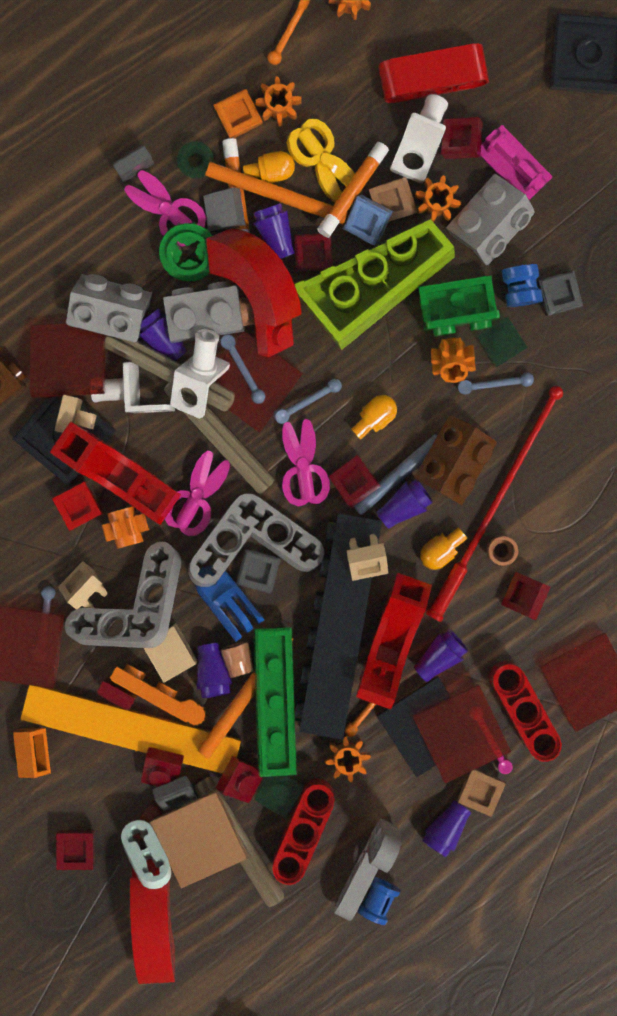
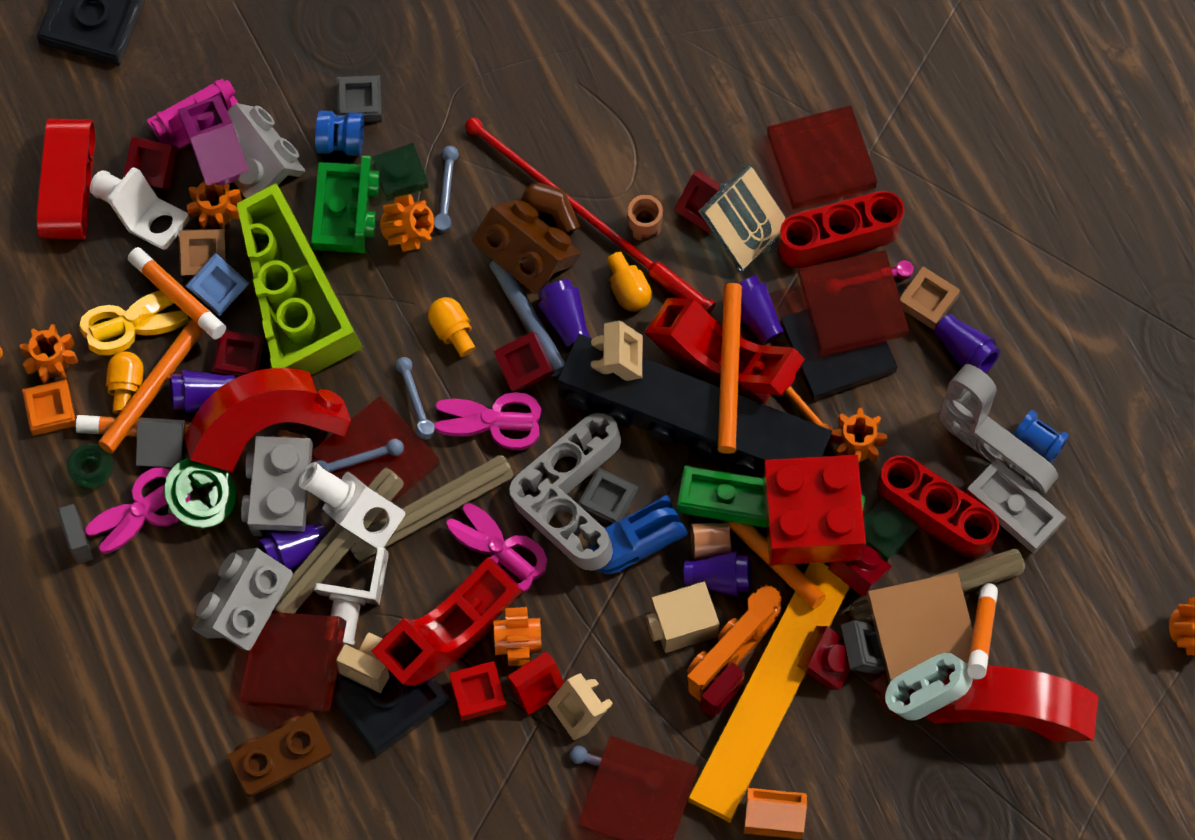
camera: 80 degrees left, 20 degrees down
(75, 850) = (910, 785): dark red plate -> none
(92, 550) = (536, 682): none -> red plate
(143, 612) = (630, 631): light grey beam -> none
(200, 887) = (982, 631): none -> bar
(264, 741) = (813, 510): none -> red brick
(319, 891) = (1016, 505): none -> light grey plate
(376, 648) = (729, 368): none -> orange bar
(482, 184) = (213, 141): none -> magenta slope
(498, 473) = (552, 202): none -> reddish brown arm
(516, 632) = (744, 217): none -> piece

